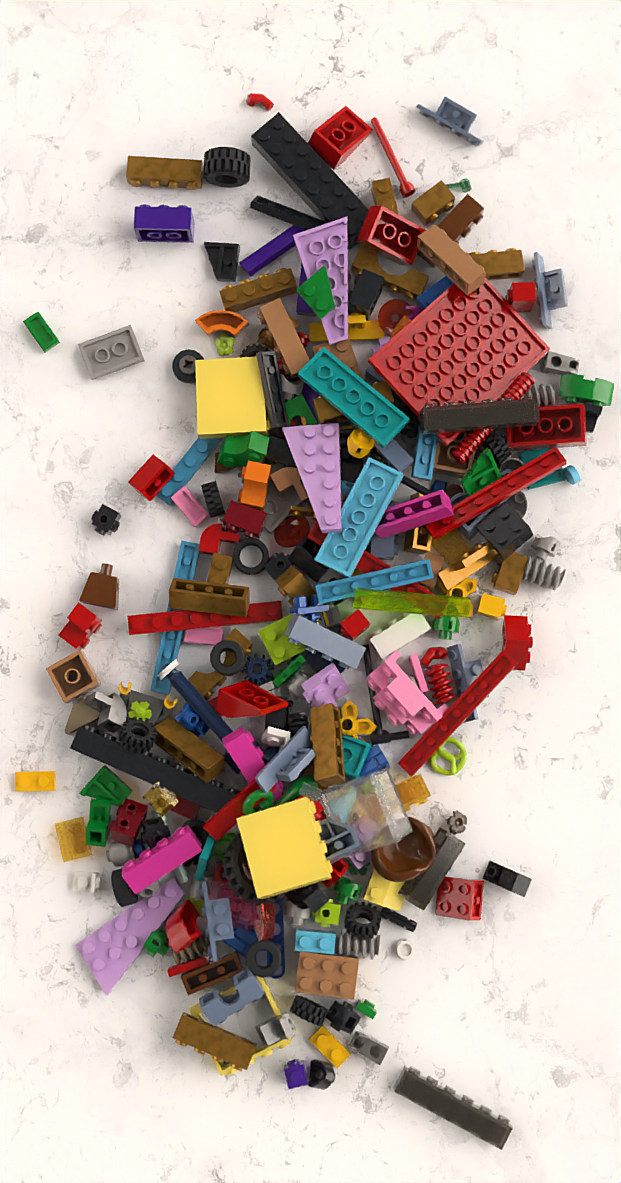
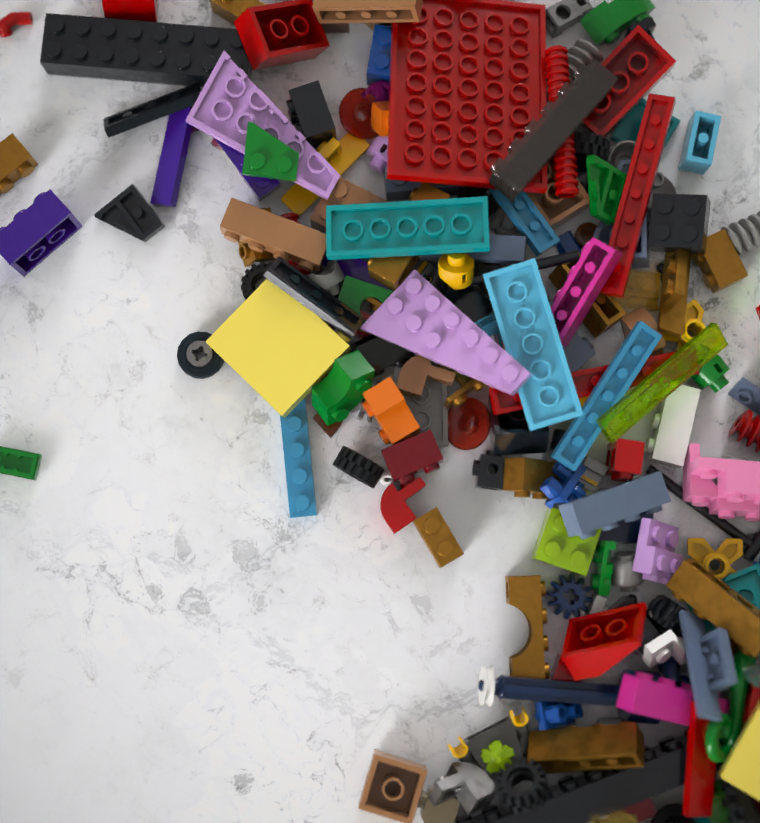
camera: 50 degrees left, 0 degrees up
(80, 627) = (348, 728): red brick -> none
(101, 589) = (332, 667): reddish brown torso -> none
(111, 352) = (106, 415): light grey plate -> none
(112, 517) = (258, 595): black brick -> none
(151, 477) = (273, 504): red brick -> none
(171, 640) = (432, 619): dark azure plate -> none
(189, 506) = (339, 496): bright pink tile -> none
(195, 620) = (465, 596): red plate -> none
(204, 636) = (479, 613): bright pink tile -> none
(209, 597) = (455, 571): pearl gold brick -> none
(222, 321) = (192, 277): orange brick -> none
(224, 344) = (216, 299): lime plant -> none
(226, 167) = (45, 116): black tyre -> none
(227, 645) = (551, 615): black tyre -> none
(247, 542) = (470, 488): black tyre -> none
(258, 291) = (198, 214): pearl gold brick -> none
(409, 284) = (345, 69): pearl gold arch -> none
(418, 674) = (727, 445): bright pink tile -> none
(433, 653) = (722, 412): red arm -> none
(491, 606) = (733, 312): yellow brick -> none
(544, 547) = (729, 204): light grey piece -> none
(561, 499) = (699, 142): none -> medium azure brick
(571, 474) = (683, 110): medium azure tile -> none

